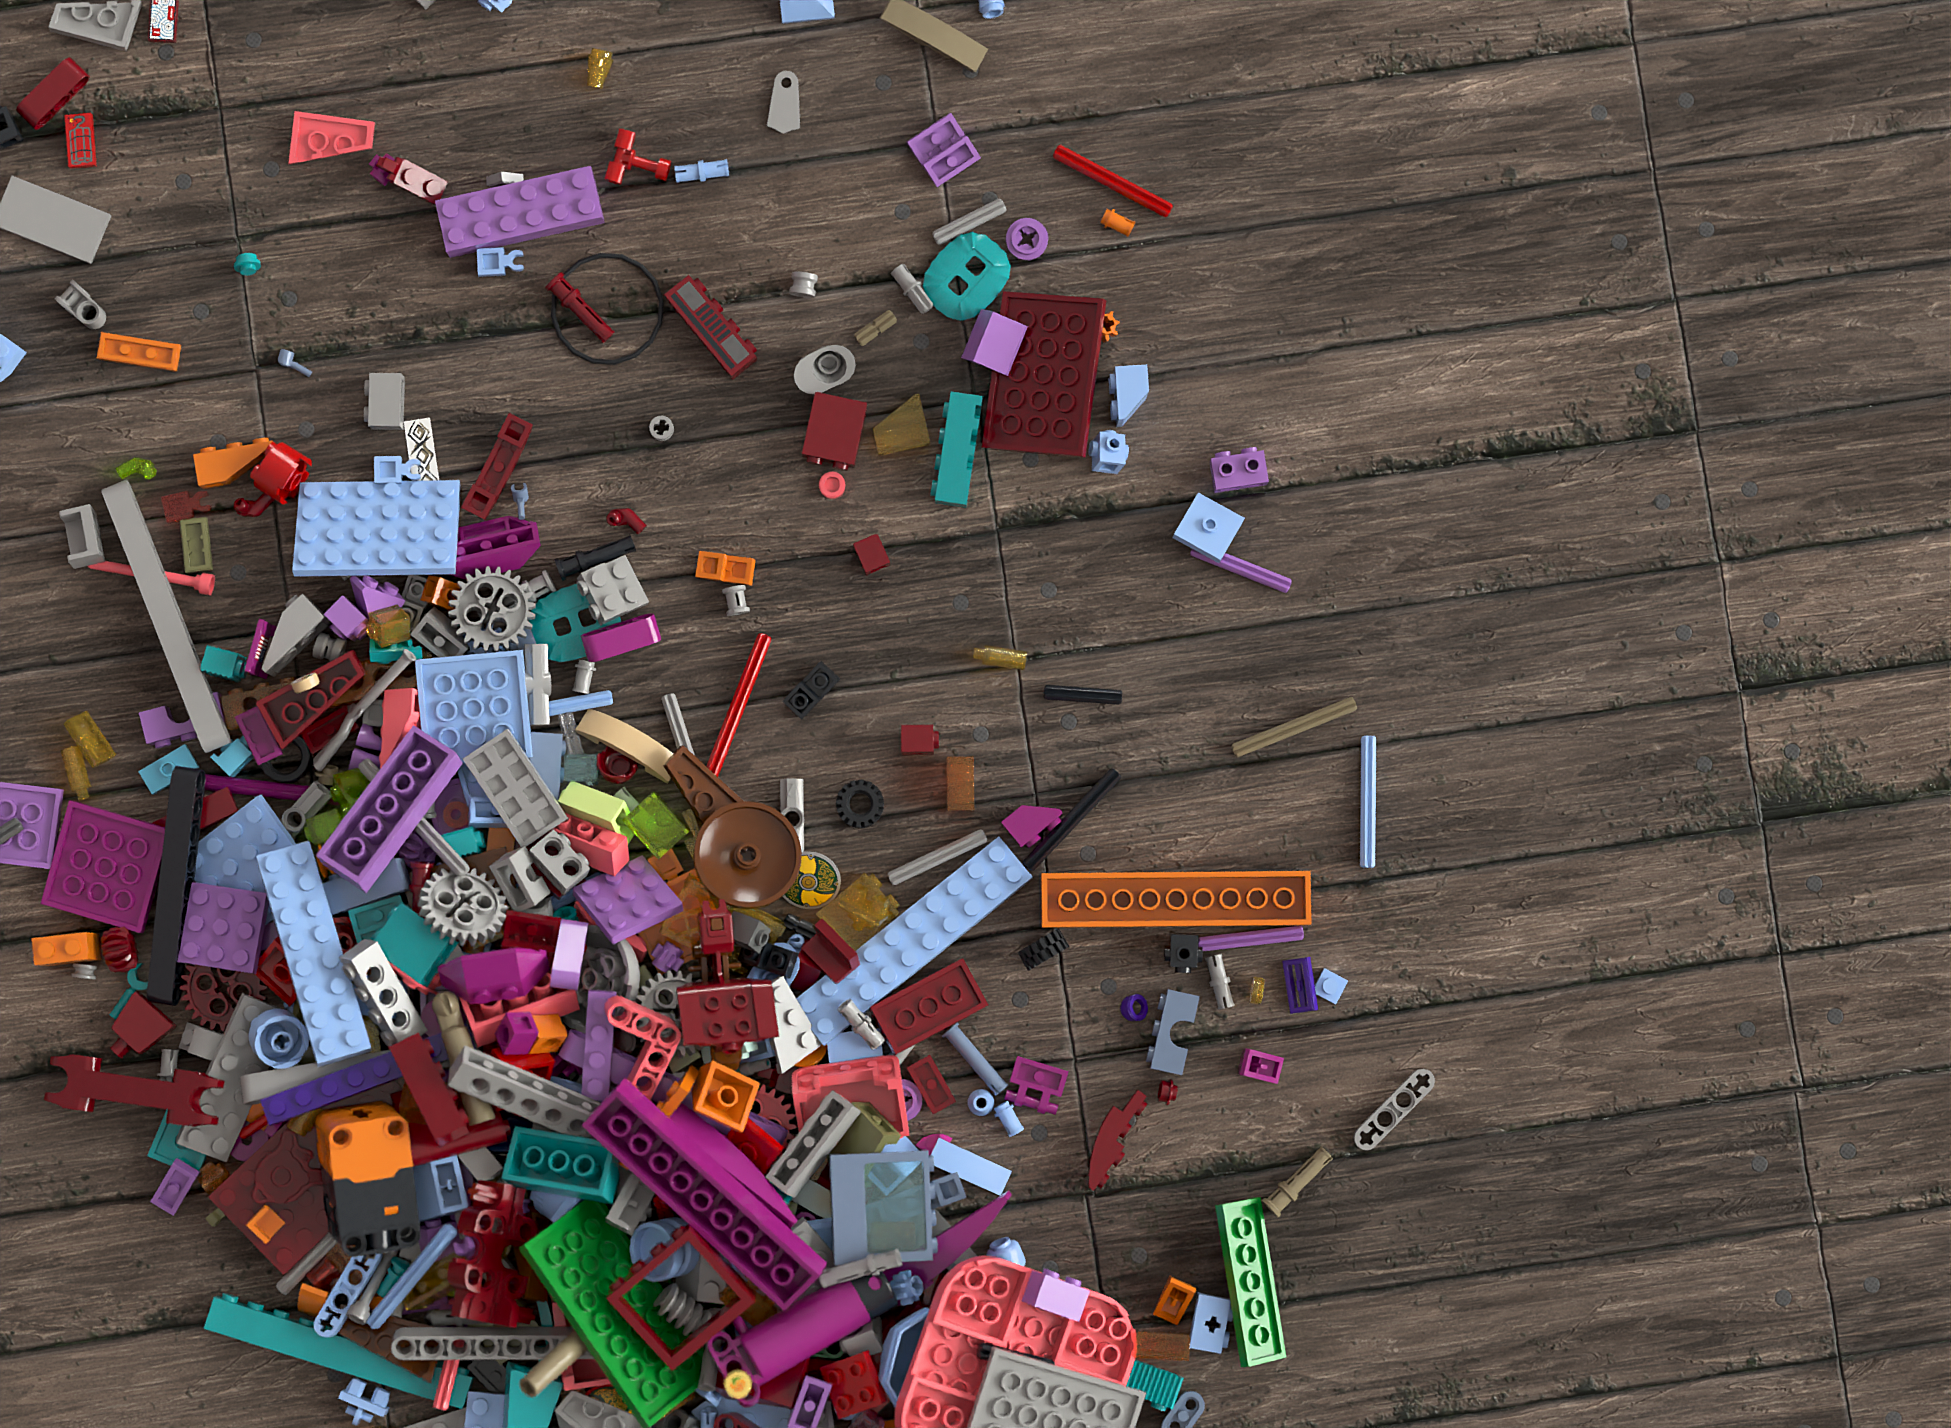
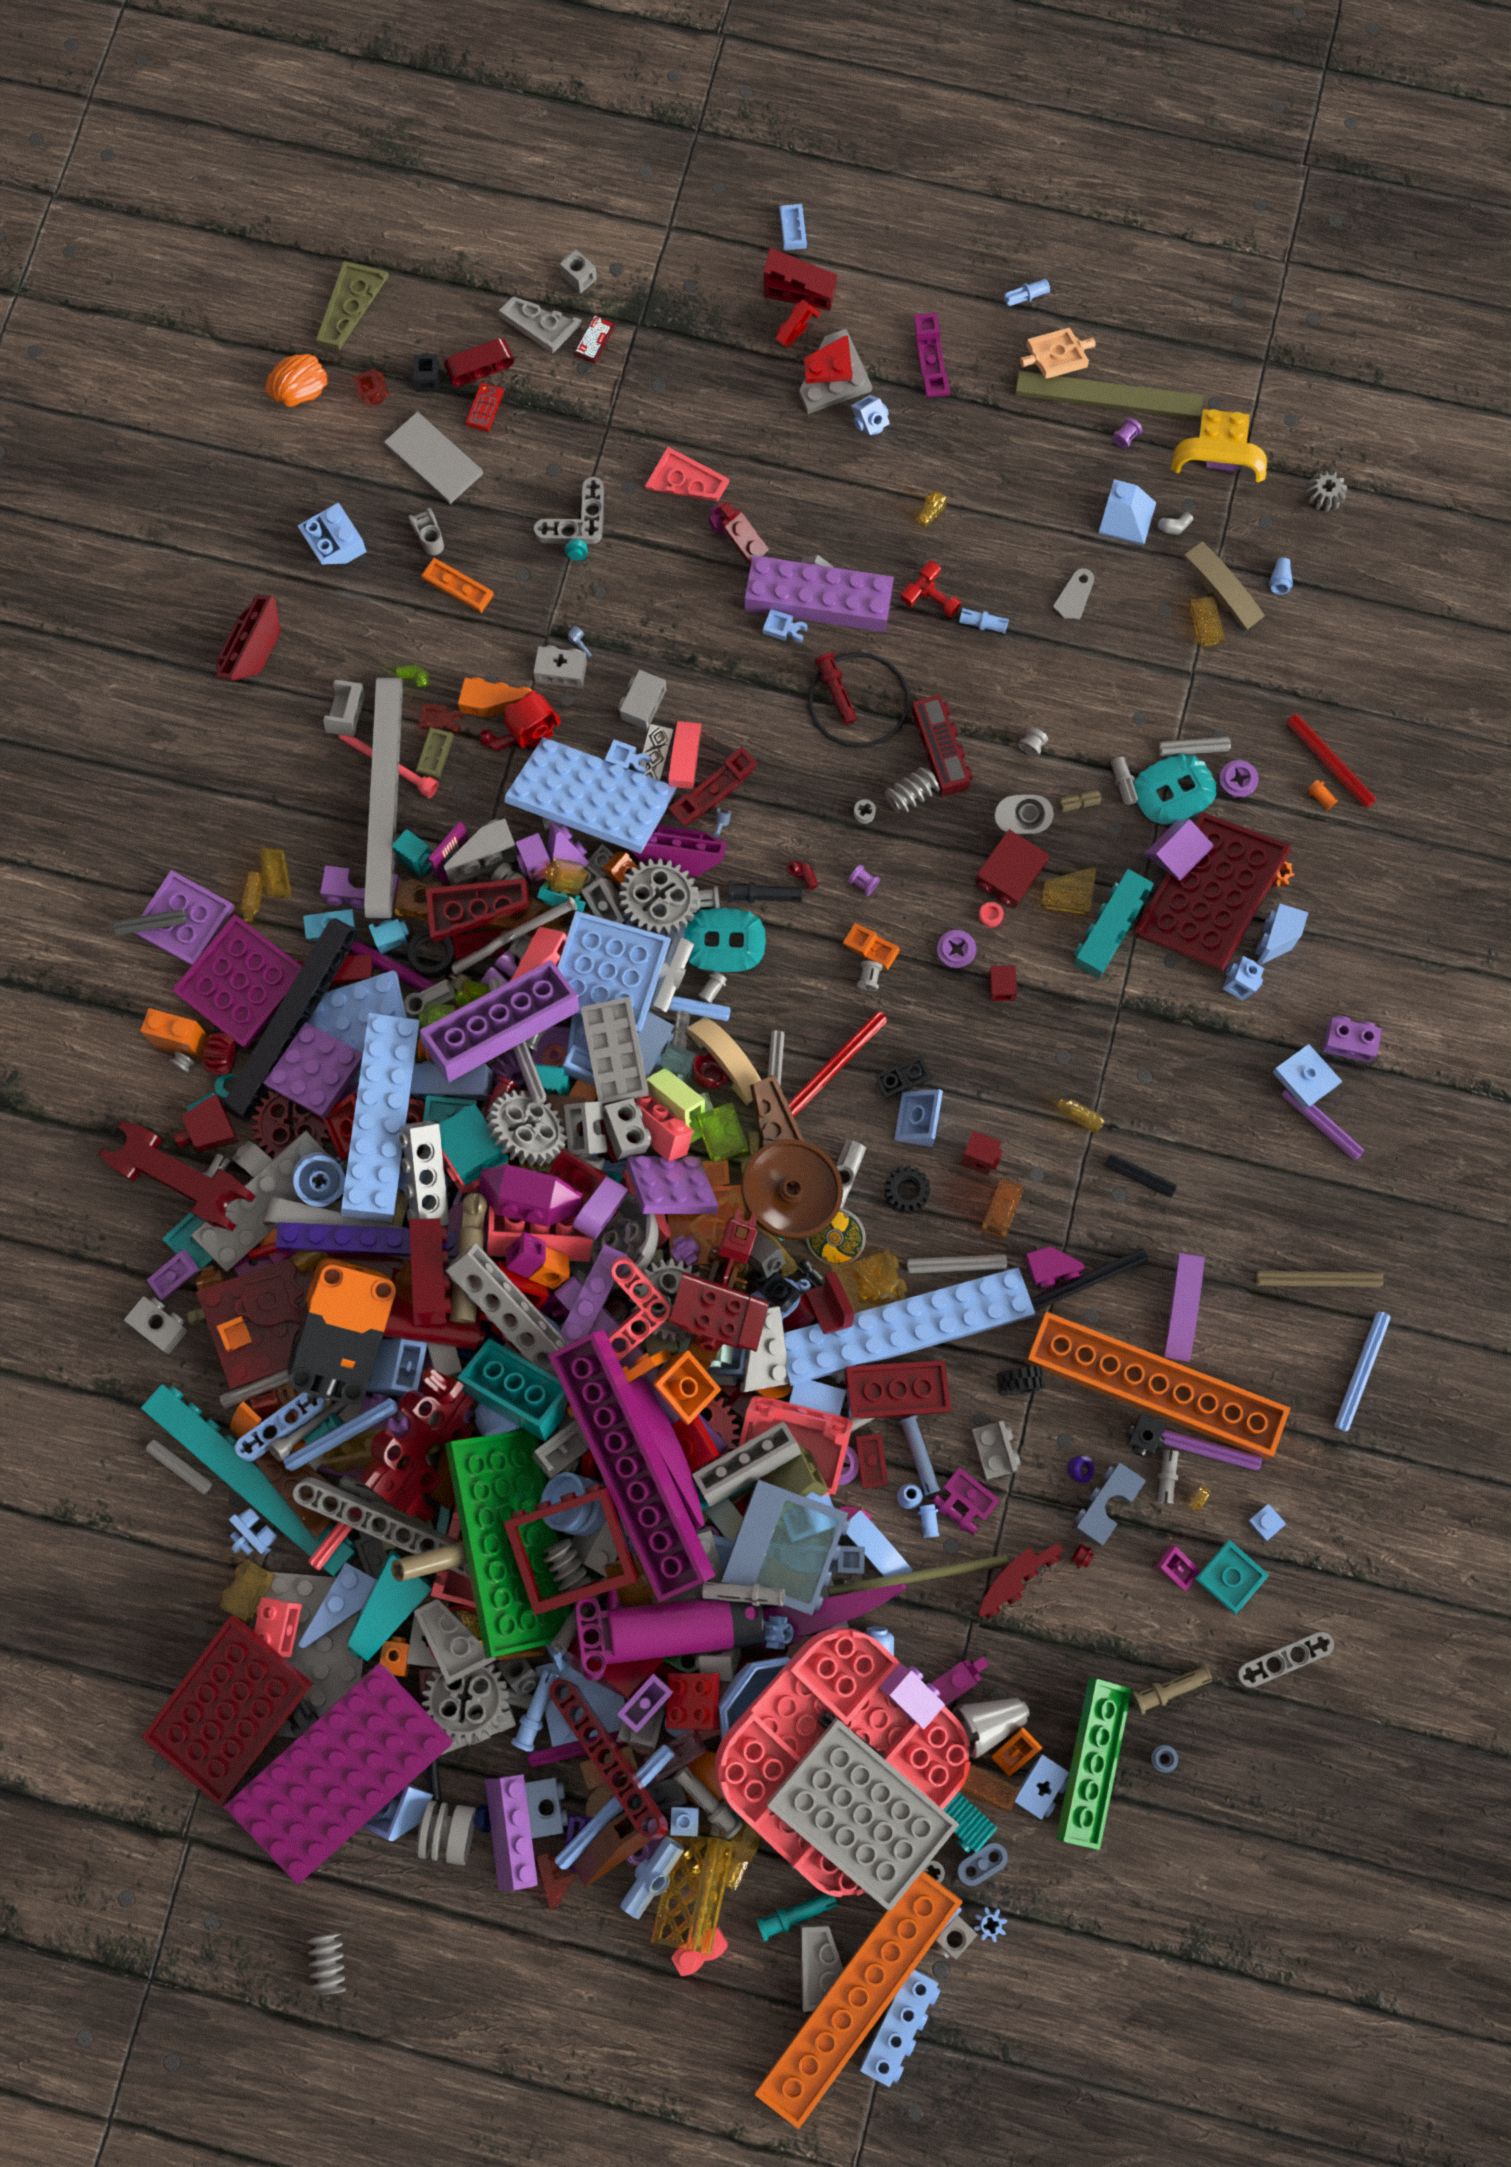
camera: 30 degrees right, 10 degrees down
(164, 1243) = (142, 1320): none -> light grey brick
(240, 234) = (582, 525): none -> light grey beam
(258, 735) = (416, 923): magenta plate -> none
(265, 1367) = (179, 1466): none -> light grey axle
(300, 403) = (548, 669): none -> light grey brick
(305, 682) = (474, 887): tan tile -> none
(453, 442) = (684, 755): none -> coral slope
(611, 590) = (766, 924): light grey plate -> none
(621, 637) = (758, 966): magenta beam -> none
(690, 502) = (864, 880): none -> medium lavender bush
(701, 387) = (910, 789): none -> light grey piece
(738, 1384) = (589, 1652): clear yellow tile -> none
(808, 524) = (956, 938): none -> medium lavender gear
(841, 726) = (918, 1117): none -> light blue slope
(861, 1024) = (832, 1378): light grey pin -> none
(931, 78) = (1207, 621): none -> clear yellow plate
(943, 149) = (1194, 681): medium lavender slope -> none
(1018, 1175) = (920, 1575): none -> olive piece
(1045, 1024) = (995, 1449): none -> light grey bracket
(1093, 1258) = (959, 1679): none -> magenta hinge
(1139, 1284) = (990, 1722): none -> light grey cone
(1173, 809) = (1184, 1307): none -> medium lavender slope
(1309, 984) = (1245, 1533): dark purple tile -> none
(1315, 1052) = (1231, 1577): none -> teal plate
(1323, 1252) = (1173, 1758): none -> sand blue plate

